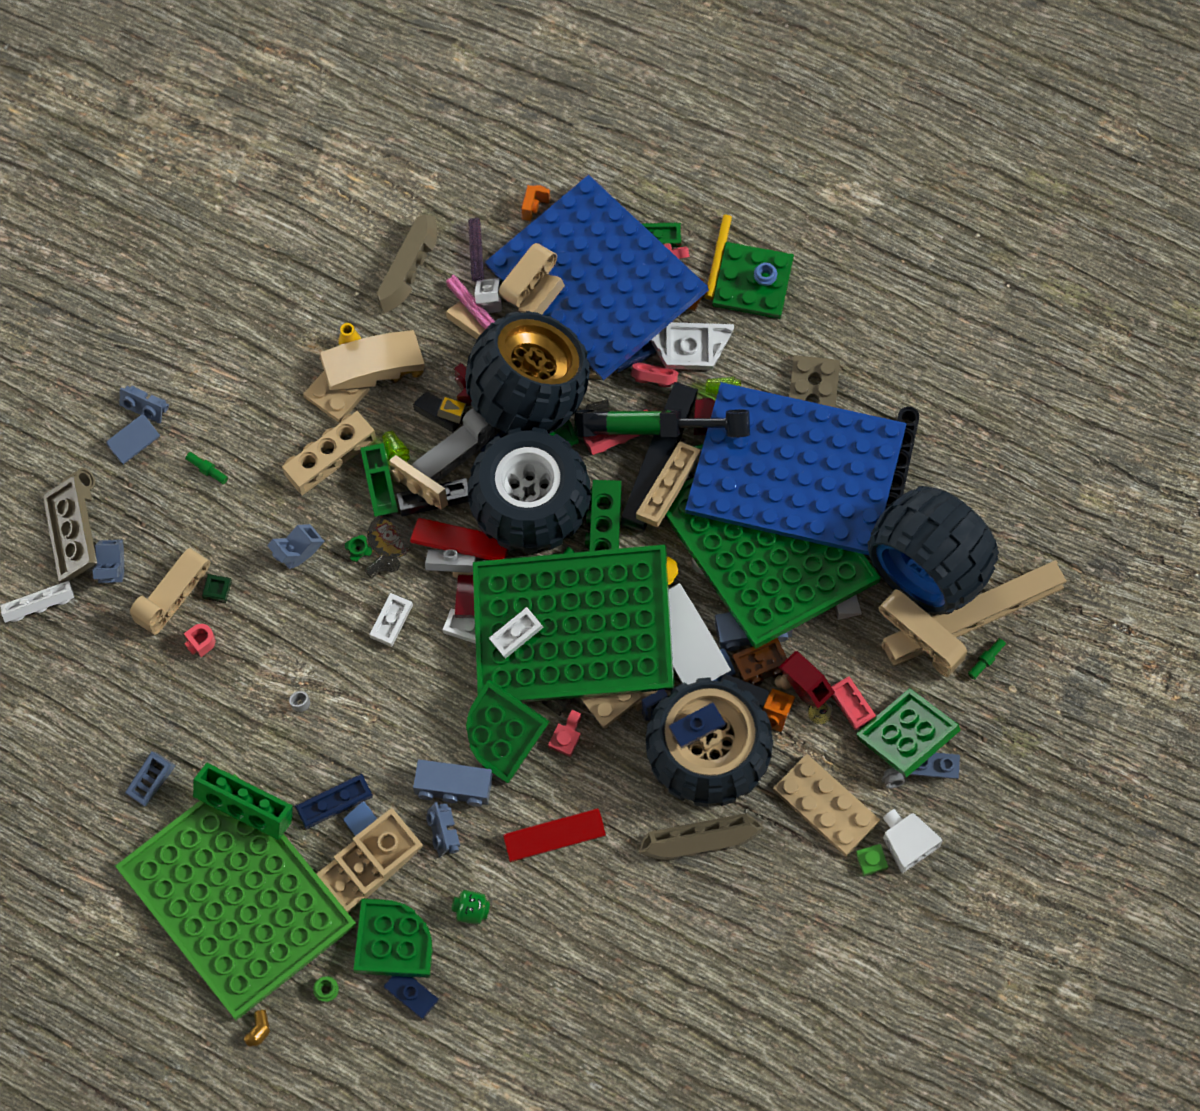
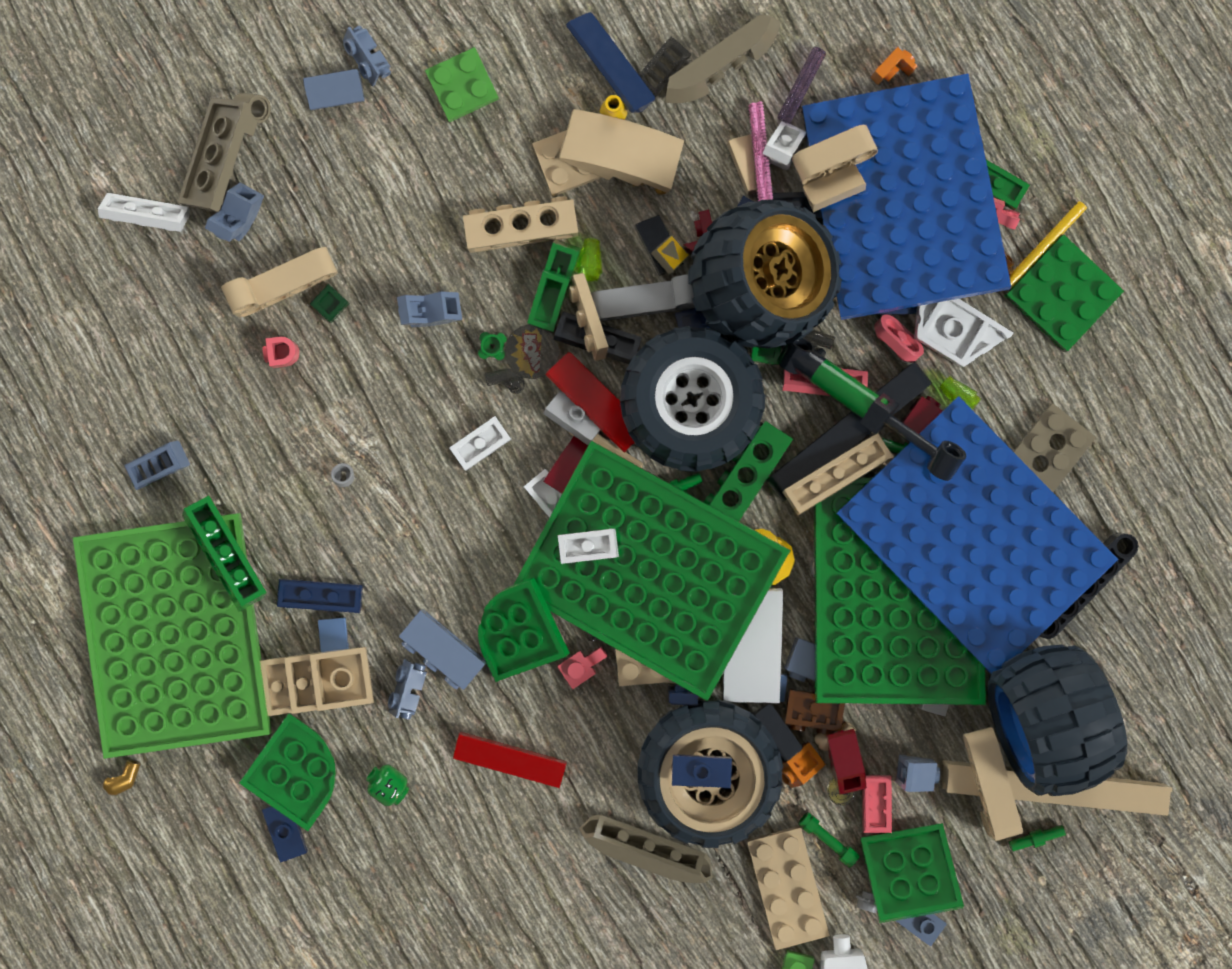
camera: 30 degrees right, 20 degrees up
(206, 468) = (390, 166): green bar -> none
(226, 384) = (462, 84): none -> bright green plate
(326, 981) = (199, 782): bright green plate -> none
(328, 308) = (611, 62): none -> dark blue slope
(371, 278) = (679, 50): none -> clear smoke slope
(765, 268) = (1086, 293): medium blue plate -> none
(854, 753) = (811, 825): none -> green bar
(865, 660) = (917, 774): none -> sand blue slope

